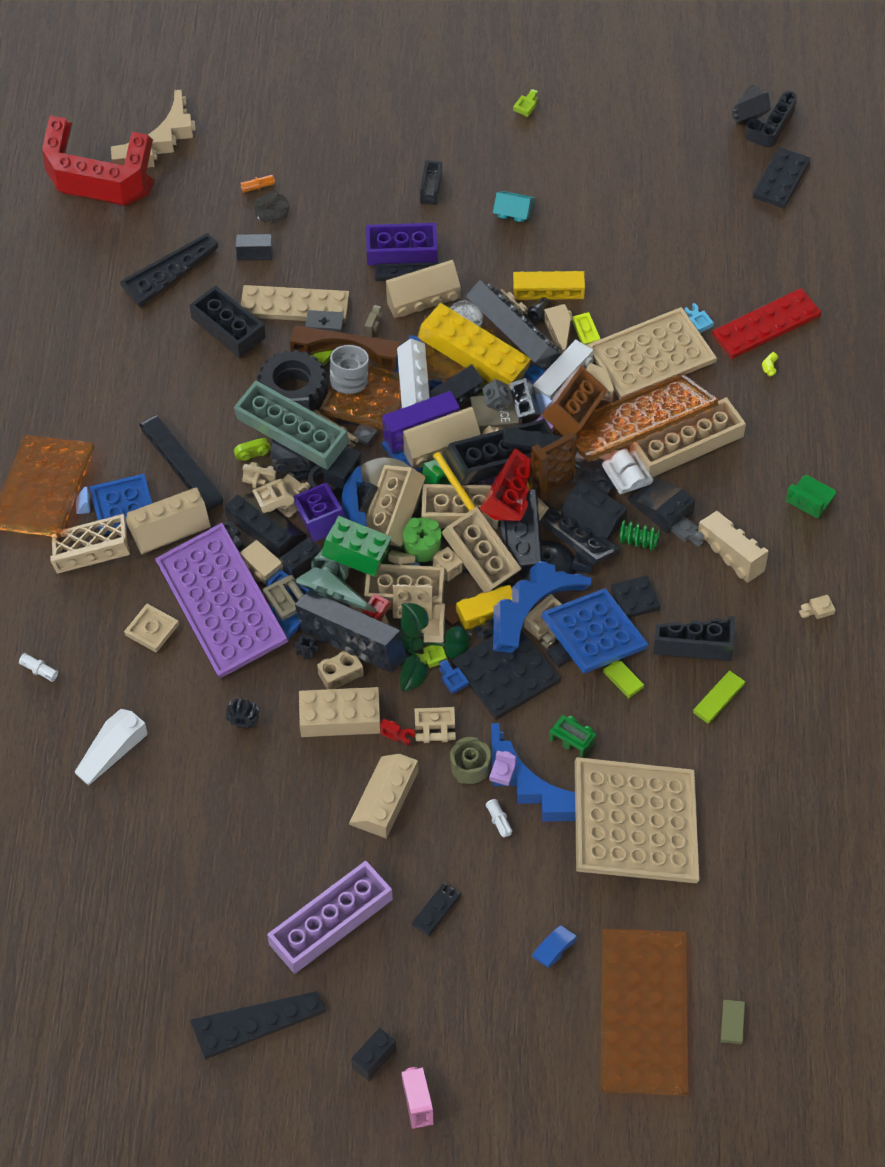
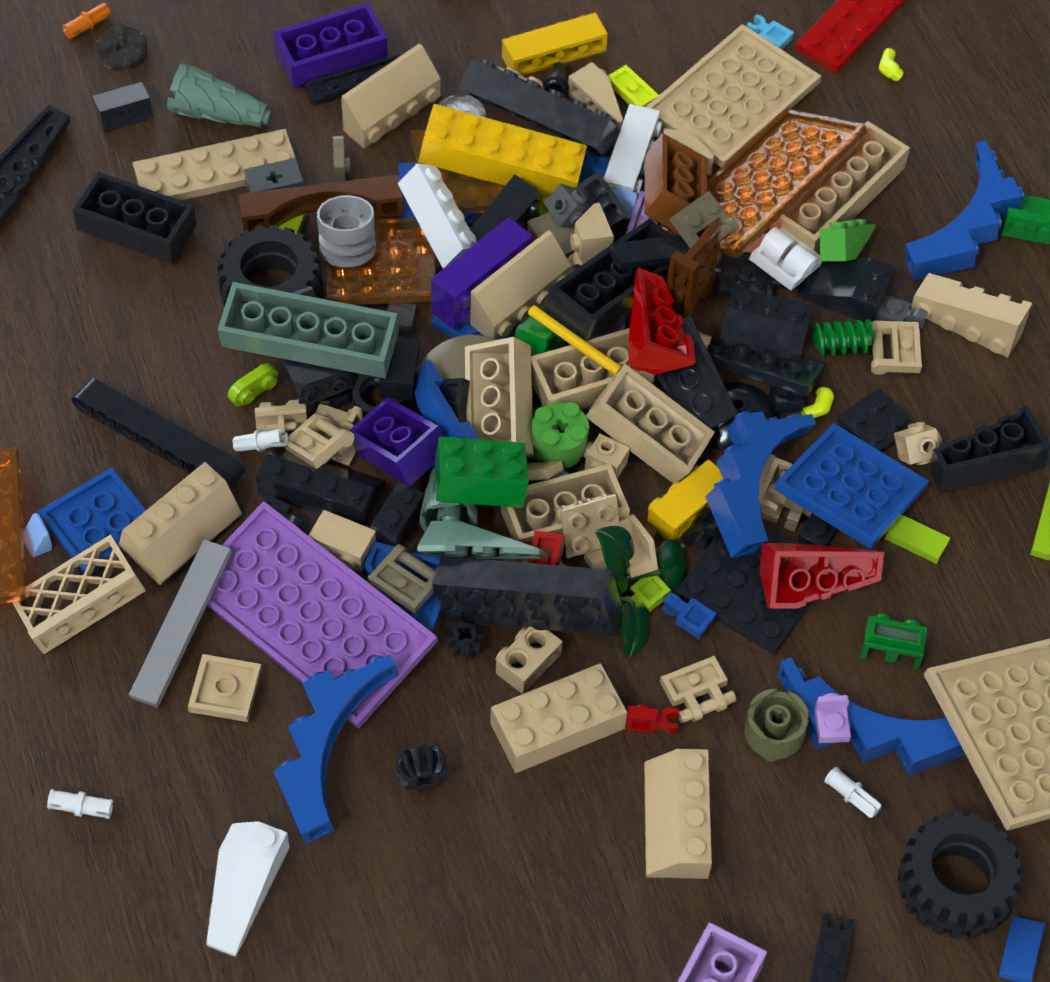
camera: 25 degrees left, 0 degrees up
(142, 580) = (180, 623): none -> light grey tile
(187, 674) = (314, 735): none -> blue arch
(240, 485) = (260, 440): none -> white axle
(307, 256) = (207, 97): none -> sand green cone
(501, 416) = (591, 233): none -> tan slope
(533, 674) = (806, 573): none -> red wedge
(541, 864) = (976, 842): none -> black tyre
(578, 424) = (700, 215): none -> dark tan plate
(605, 574) = (822, 403): none -> neon yellow arm
(647, 615) = (917, 443): none -> tan brick
(671, 471) = (844, 239): none -> bright green slope
(678, 554) = (904, 347): none -> tan plate
(746, 497) = (958, 242): none -> blue arch

